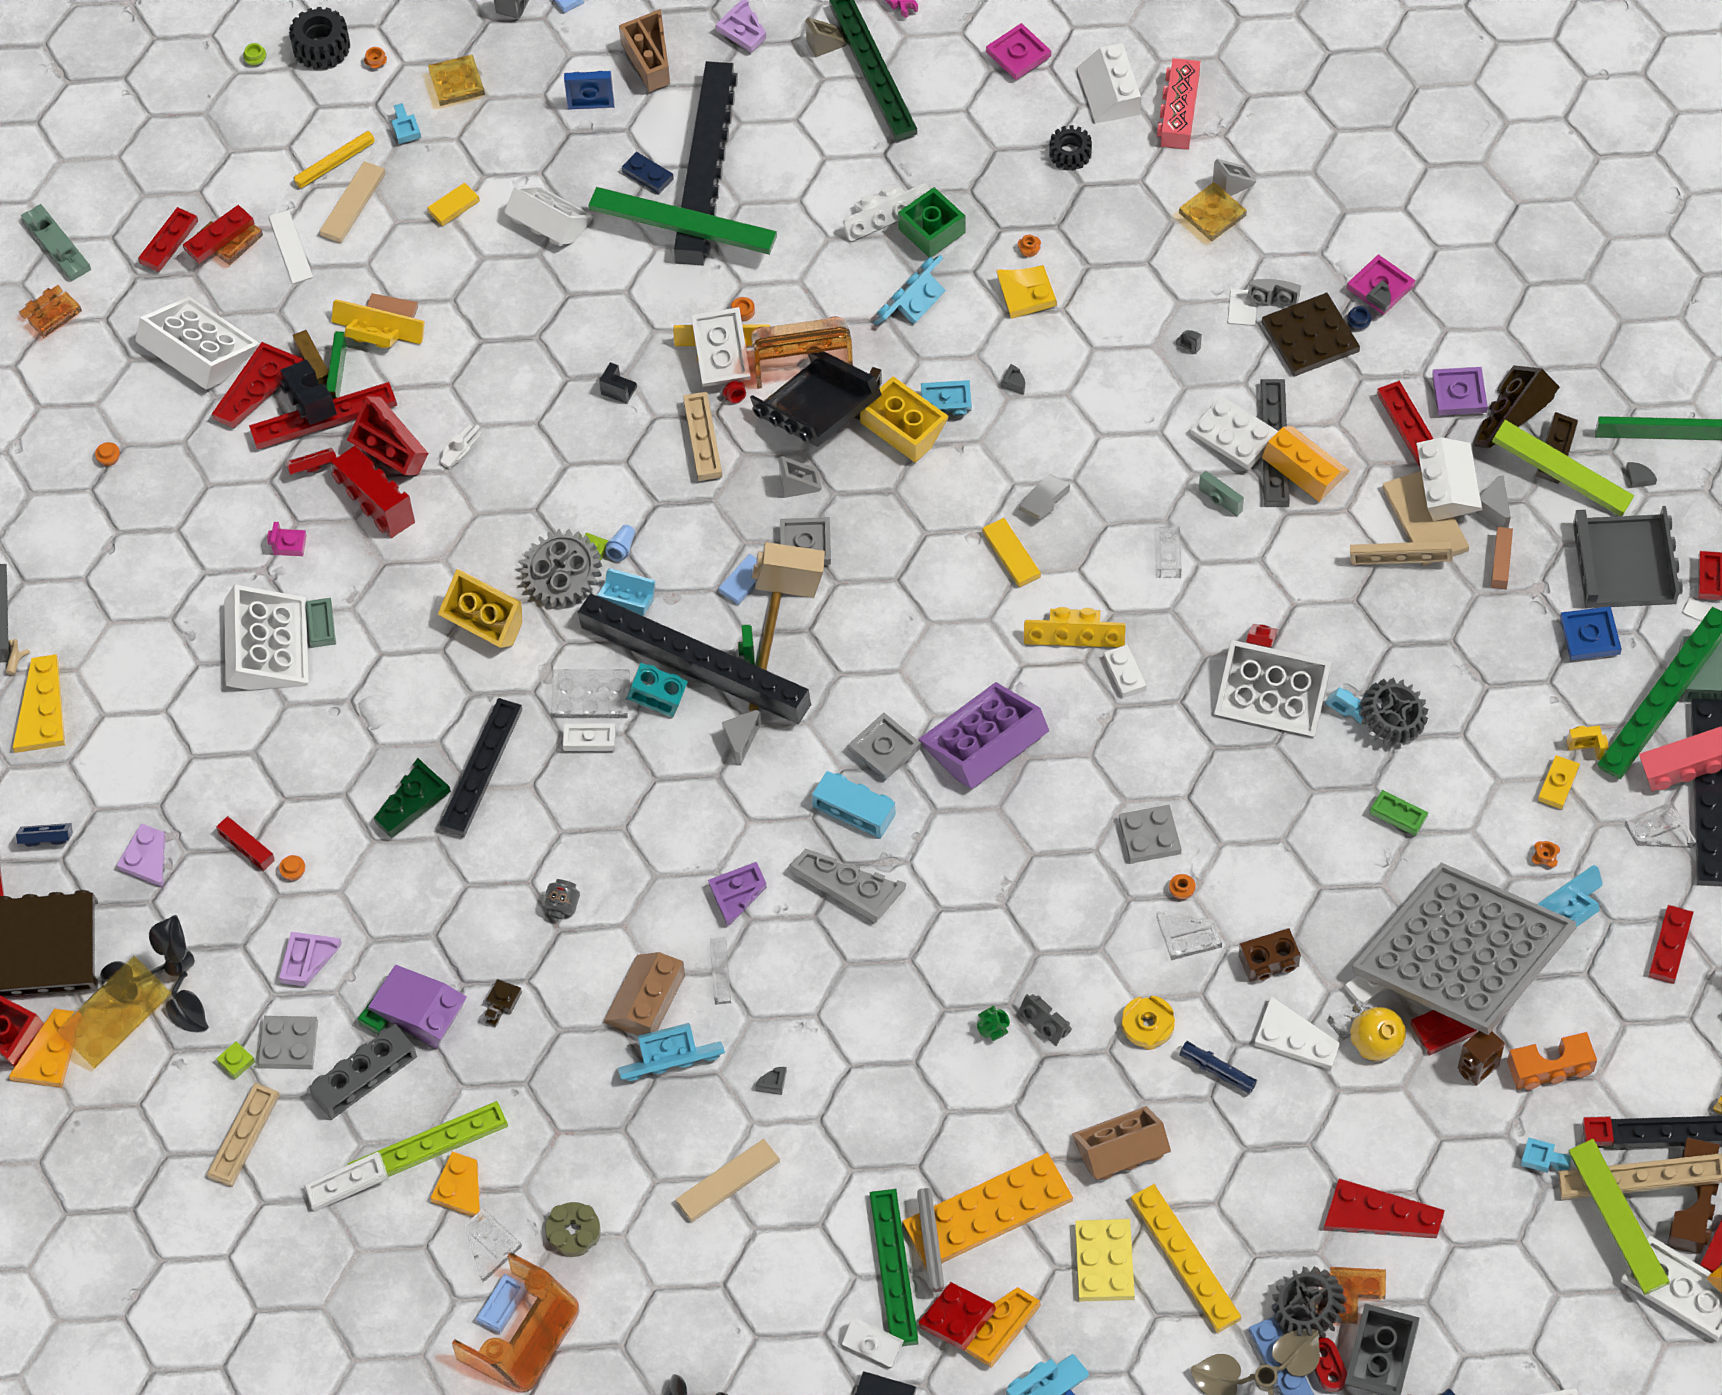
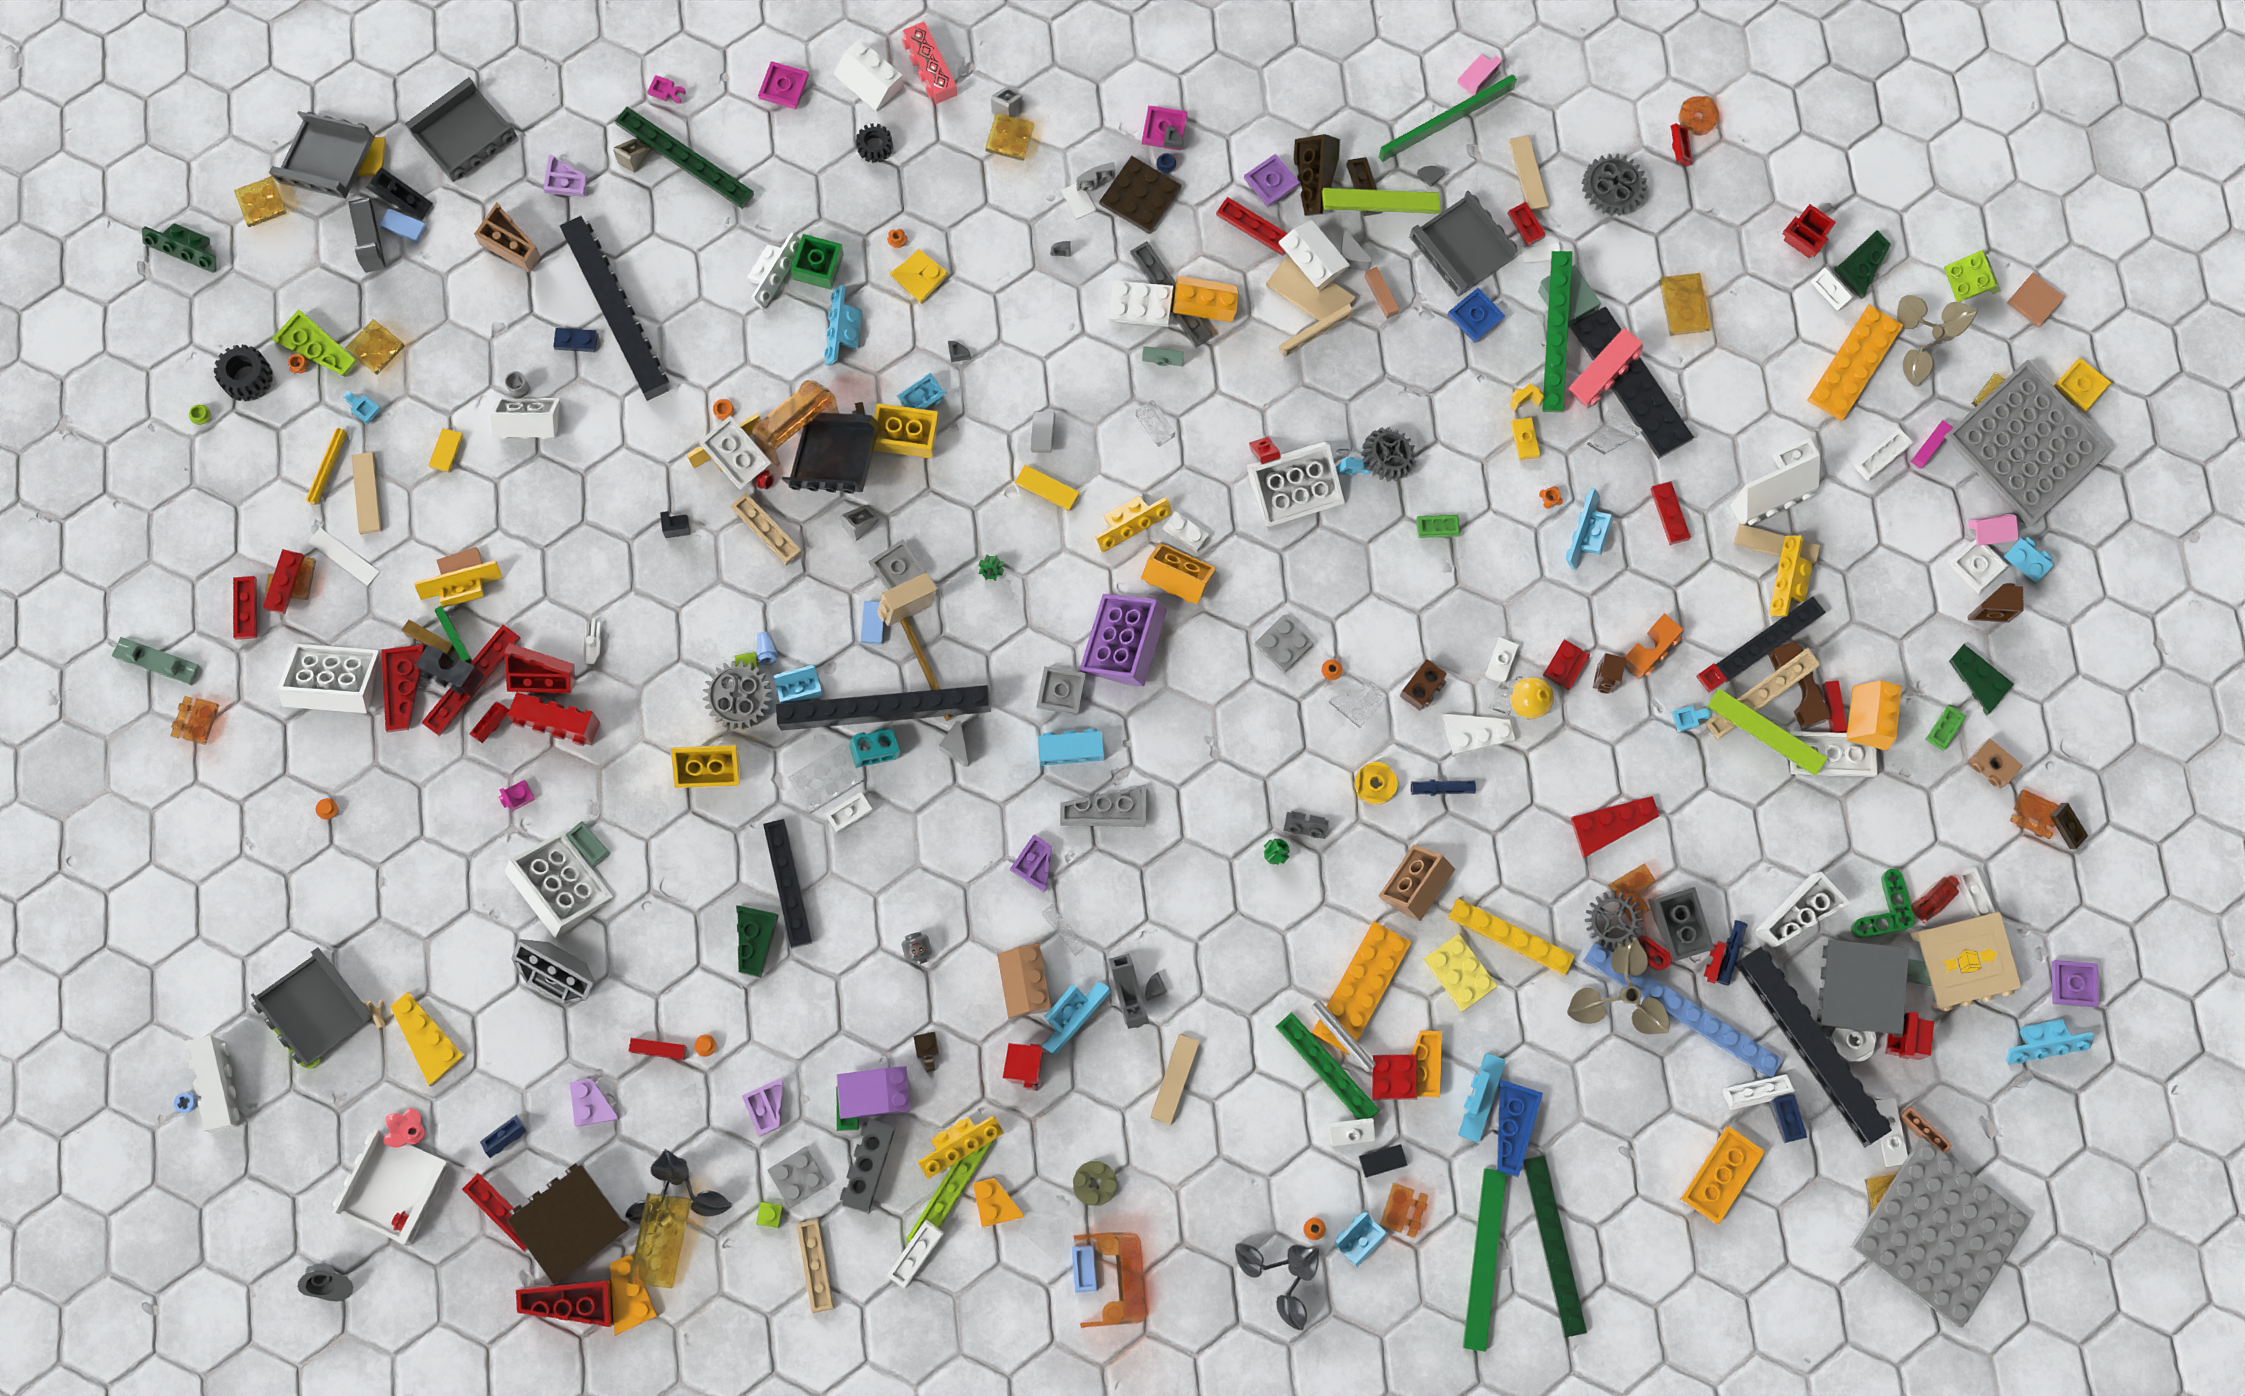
camera: 40 degrees left, 15 degrees up
(200, 710) = (553, 971): none -> dark grey wedge
(402, 46) = (309, 340): none -> lime wing
(464, 1104) = (958, 1143): none -> yellow bracket
(562, 181) = (513, 381): none -> light grey wheel
(584, 1068) = (1024, 1065): none -> red plate
(589, 90) = (487, 299): blue plate -> none
(682, 220) = (634, 367): green tile -> none
(742, 1062) = (1128, 991): none -> dark grey arch
(746, 647) = (917, 677): green plate -> none
(898, 591) = (995, 570): none -> green gear
(1086, 703) = (1177, 573): none -> light orange slope
(1464, 948) = (1551, 603): light grey plate -> none

